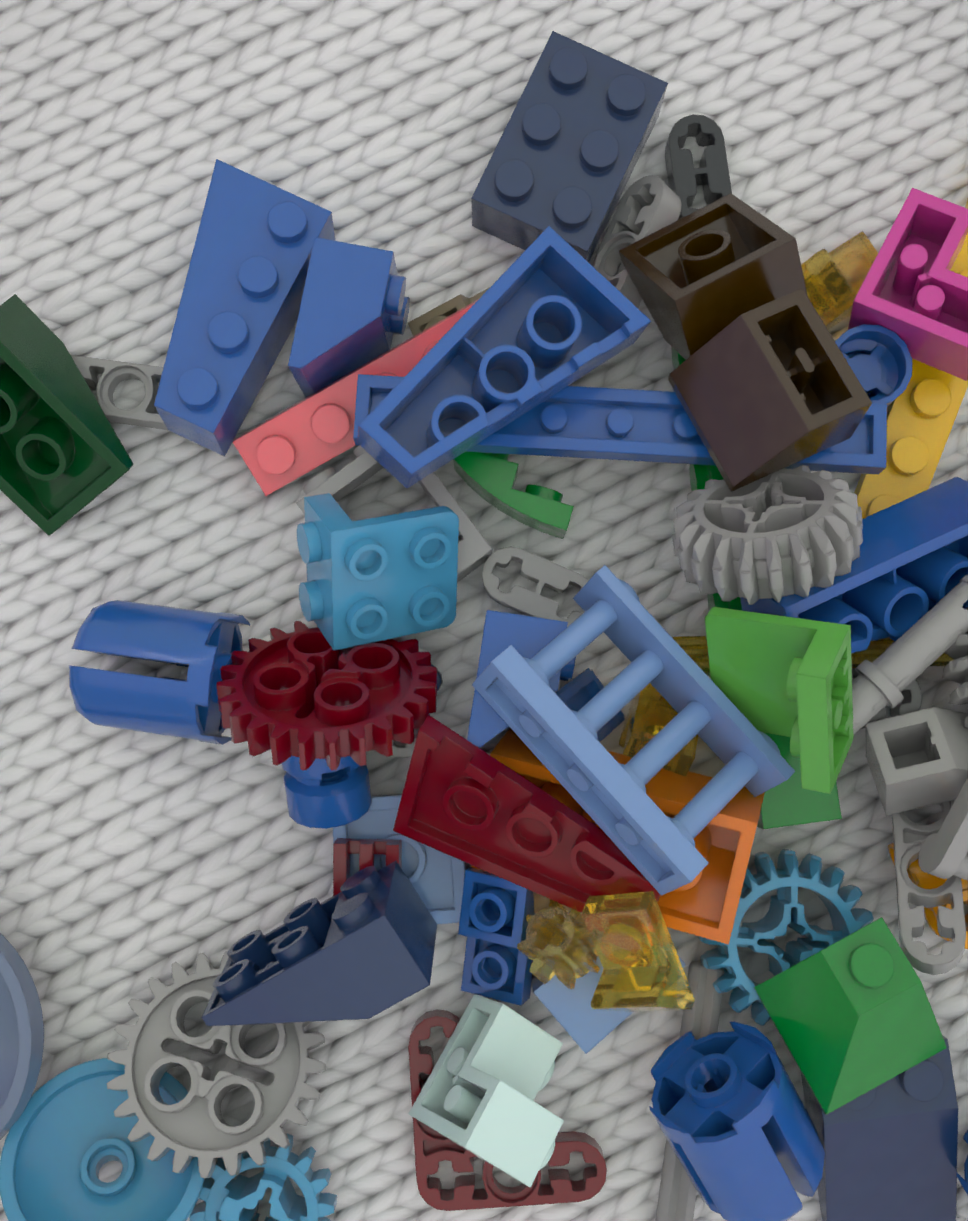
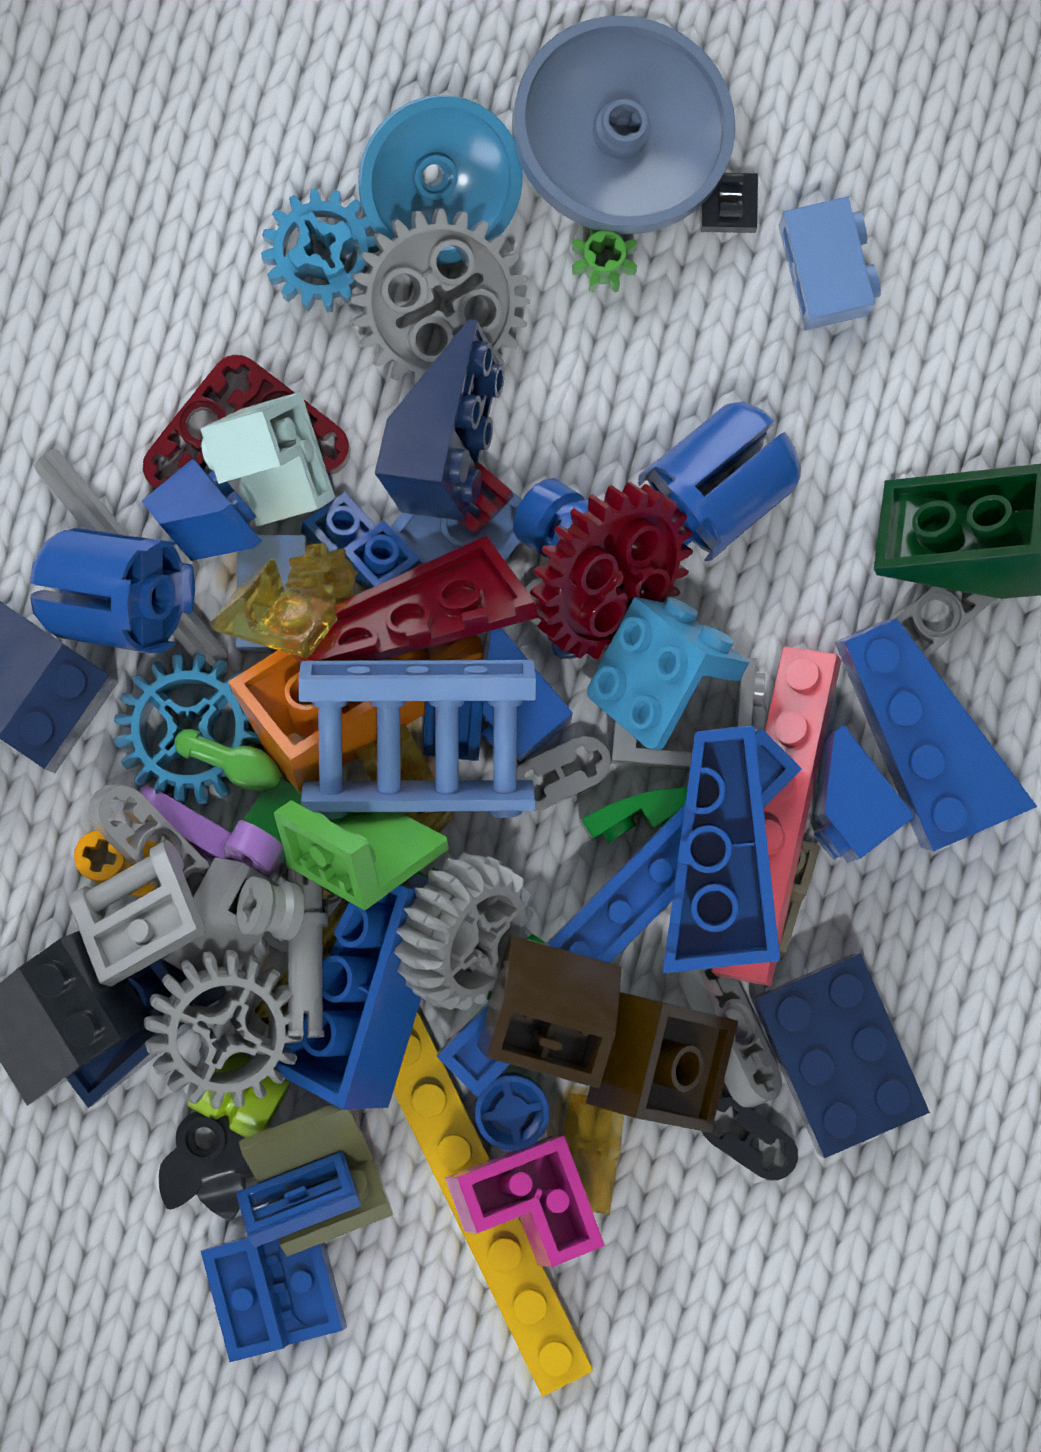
camera: 130 degrees right, 0 degrees up
(73, 938) = (613, 268): none -> bright green gear
(599, 1101) = (202, 514): none -> blue slope
(785, 864) = (242, 765): none -> bright green piece
(852, 1015) = (117, 718): green slope -> none
(862, 800) = (210, 840): none -> medium lavender beam
(907, 720) = (270, 908): none -> light grey wheel

